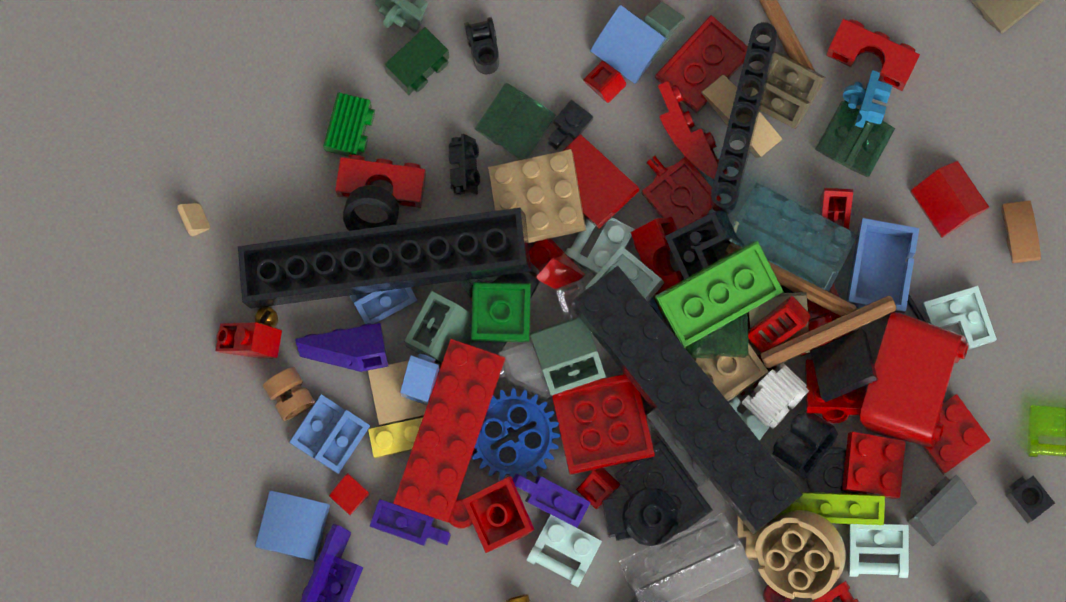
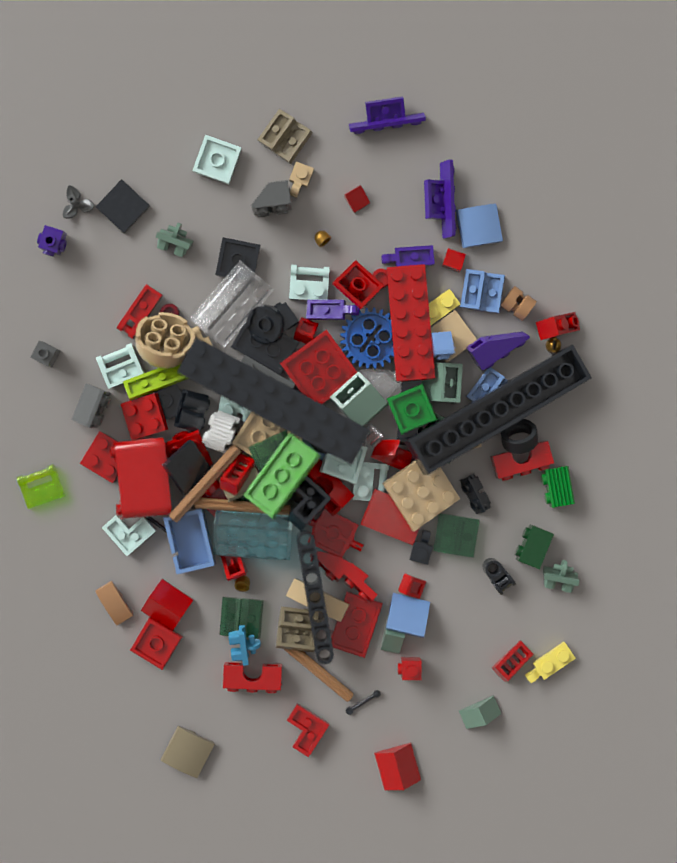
camera: 150 degrees right, 10 degrees up
(193, 218) = (627, 386): tan slope -> none
(834, 180) = (242, 583): none -> pearl gold hinge
(985, 153) = (156, 643): none -> red plate
(1042, 498) = (33, 435): black brick -> none

